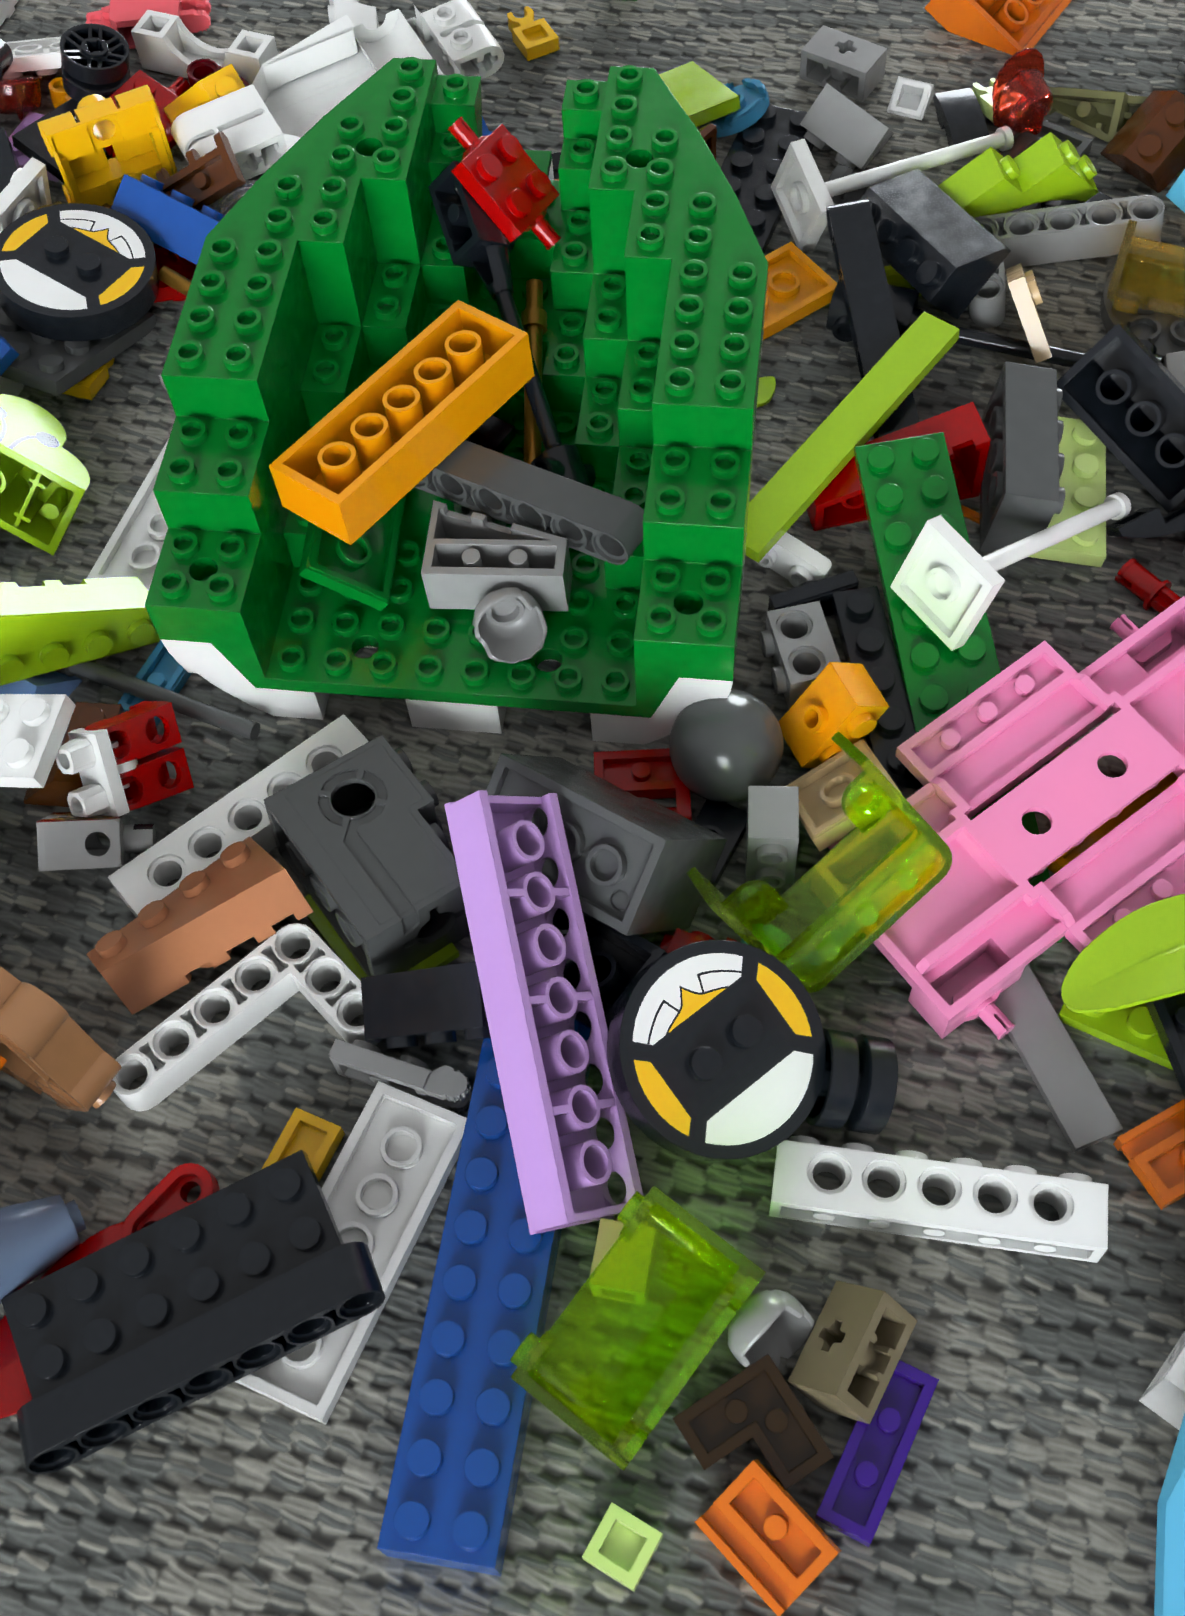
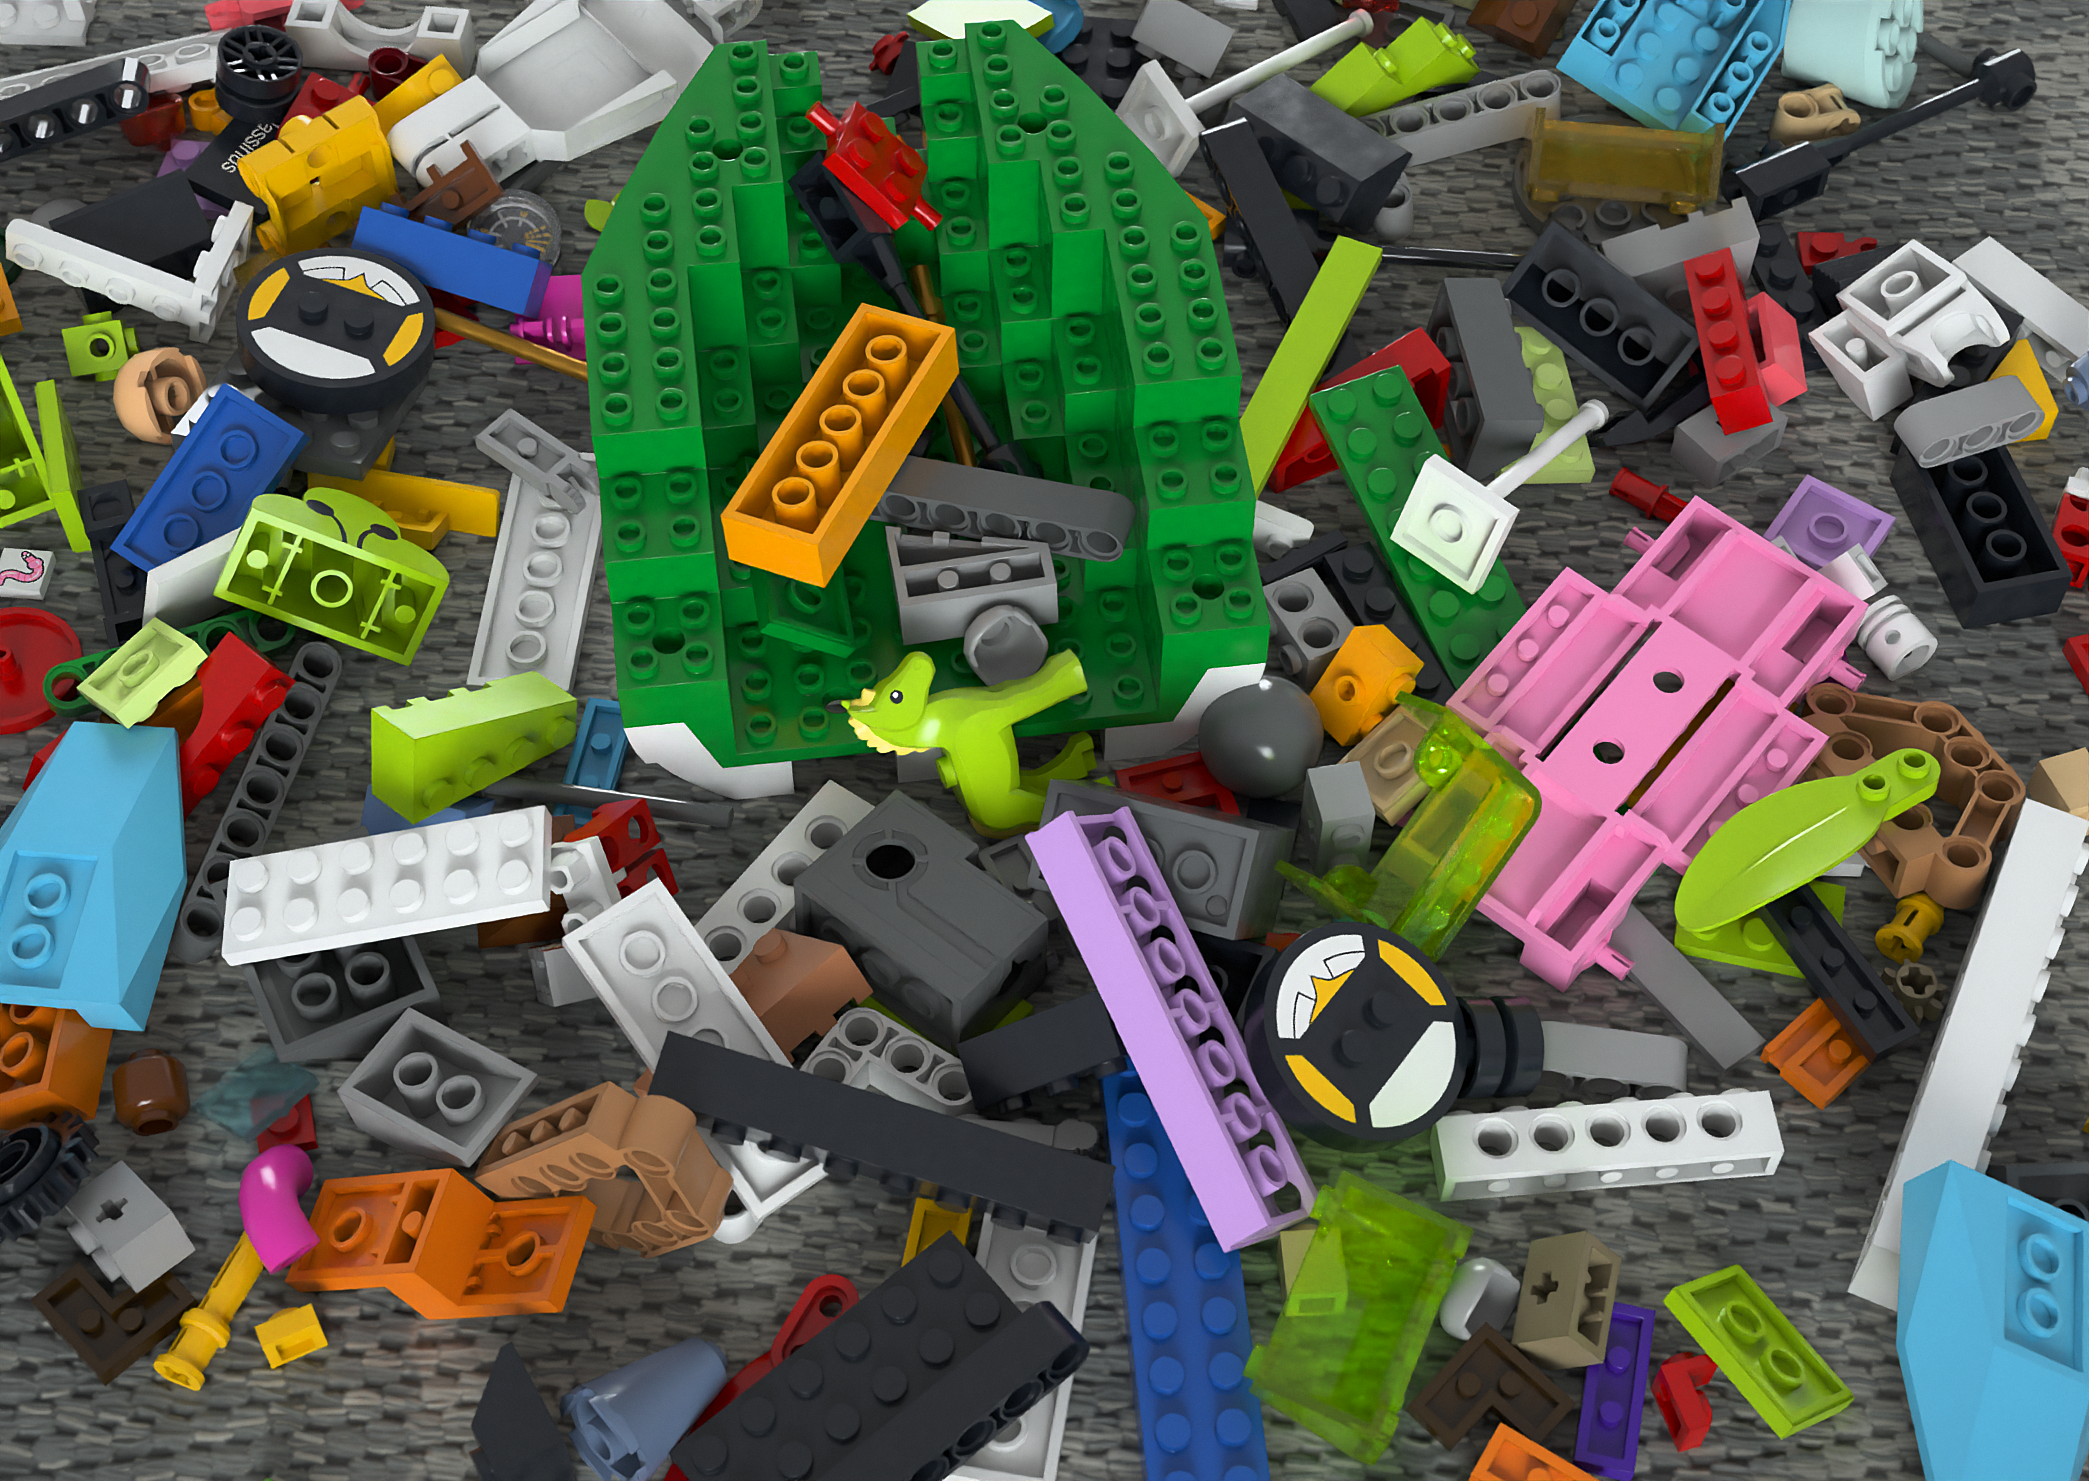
camera: 20 degrees left, 5 degrees down
(100, 427) = (422, 505): none -> yellow bracket
(138, 940) = (664, 978): none -> white plate
(258, 1054) = (885, 1140): none -> black brick
(462, 697) = (977, 737): none -> lime animal
(940, 1487) = (1681, 1405): none -> red bracket
(965, 1117) = (1612, 1062): none -> light grey beam
(1026, 298) = (1440, 205): wing -> none
(1029, 1448) = (1759, 1350): none -> lime tile

